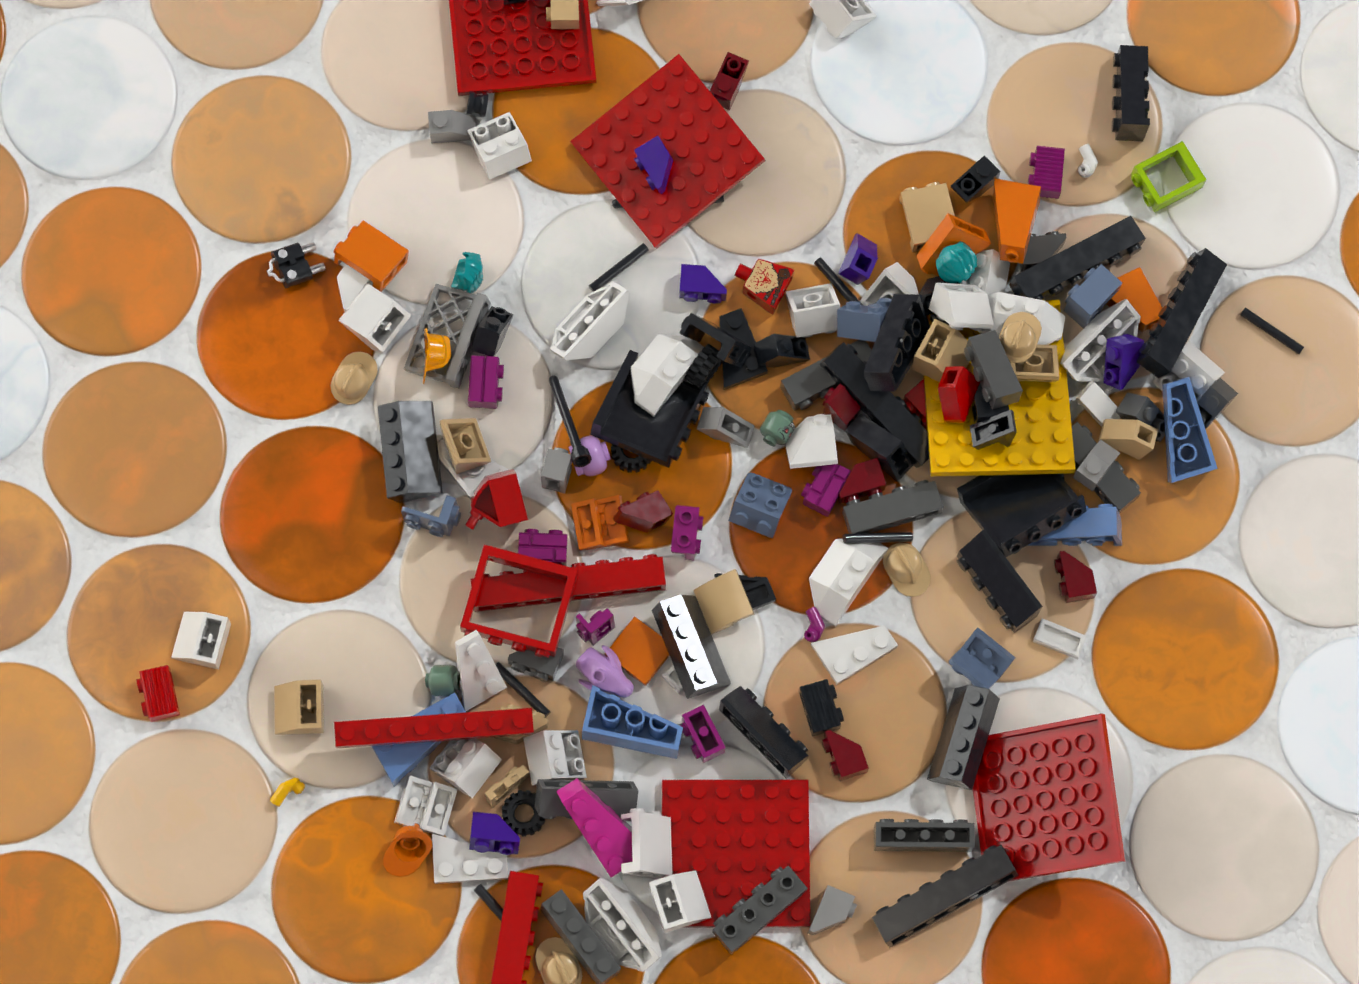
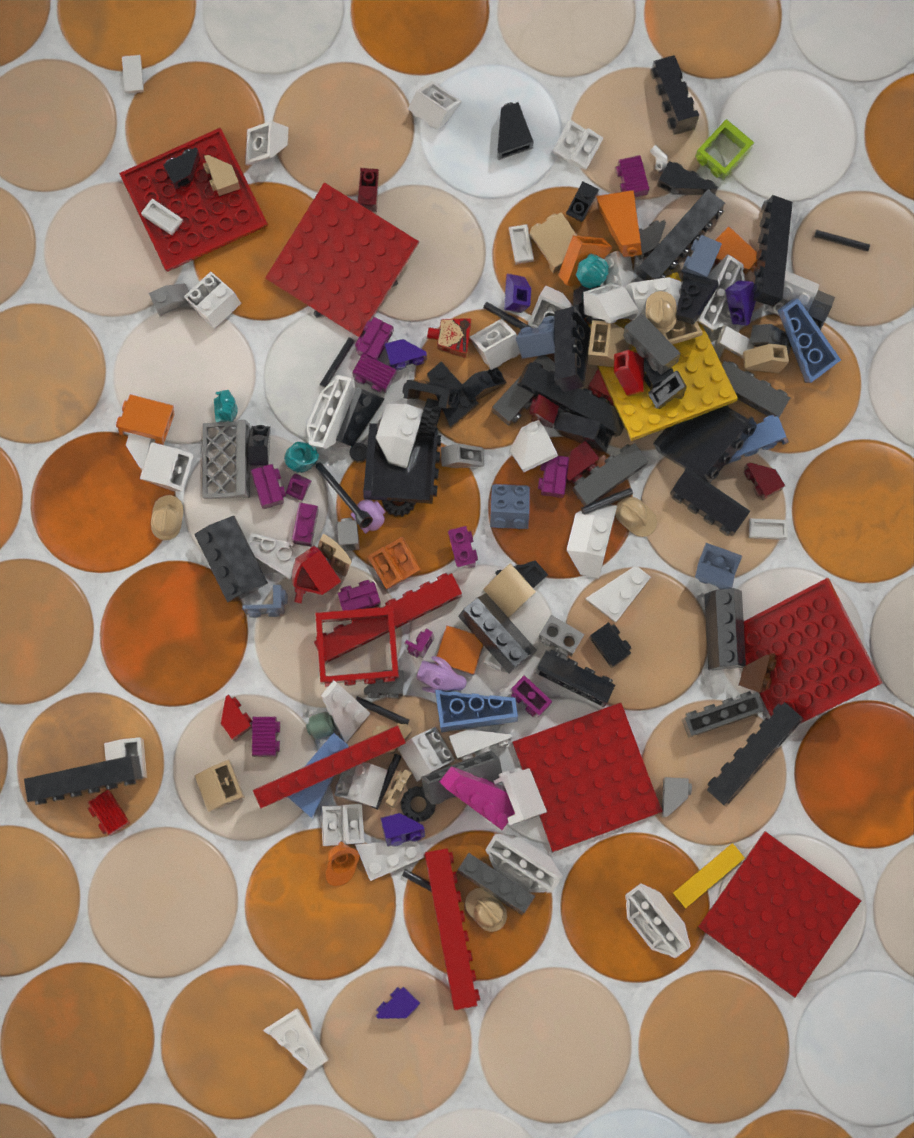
camera: 20 degrees left, 5 degrees up
(144, 642) = (83, 779): none -> black brick
(286, 787) = (231, 850): yellow arm -> none
(292, 264) = (88, 447): black piece -> none
(343, 637) = (233, 719): none -> red slope
(373, 670) = (265, 736): none -> magenta brick
(436, 351) = (223, 476): light orange piece -> none
(464, 443) = (271, 539): tan slope -> none
(476, 30) = (162, 217): none -> white tile
(477, 104) = (183, 273): black wheel -> none
(499, 771) = (389, 775): none -> black bar
(511, 441) = (305, 524): none -> magenta brick
(520, 395) = (298, 486): none -> magenta slope
(533, 486) = (331, 550): none -> tan slope
(535, 361) = (301, 457): none -> teal hair
(604, 379) = (358, 452): none -> black tile
(613, 762) = (473, 741): none -> white slope
(620, 336) = (358, 416): none -> black wing
(645, 513) = (426, 545): dark red slope -> none
(656, 161) = (337, 271): dark purple slope -> none
(656, 295) = (374, 373): none -> magenta brick
(667, 259) = (374, 339): none -> magenta brick
(679, 900) = (560, 829): white slope -> none
(759, 909) = (621, 814): dark grey brick -> none
(770, 673) = (563, 631): none -> light grey brick
(777, 428) = (502, 444): sand green head -> none
(816, 625) = (585, 584): magenta arm -> none
(846, 756) = (643, 675): dark red slope -> none
(886, 205) = (521, 244): none -> white tile
(923, 71) = (513, 131): none -> black slope
(983, 801) = (757, 674): none -> reddish brown slope
(995, 112) = (577, 145): none -> white slope
(1067, 333) = (694, 296): none -> black wing
(1096, 465) = (751, 389): light grey slope -> none
(1103, 197) = (684, 182): none -> black slope

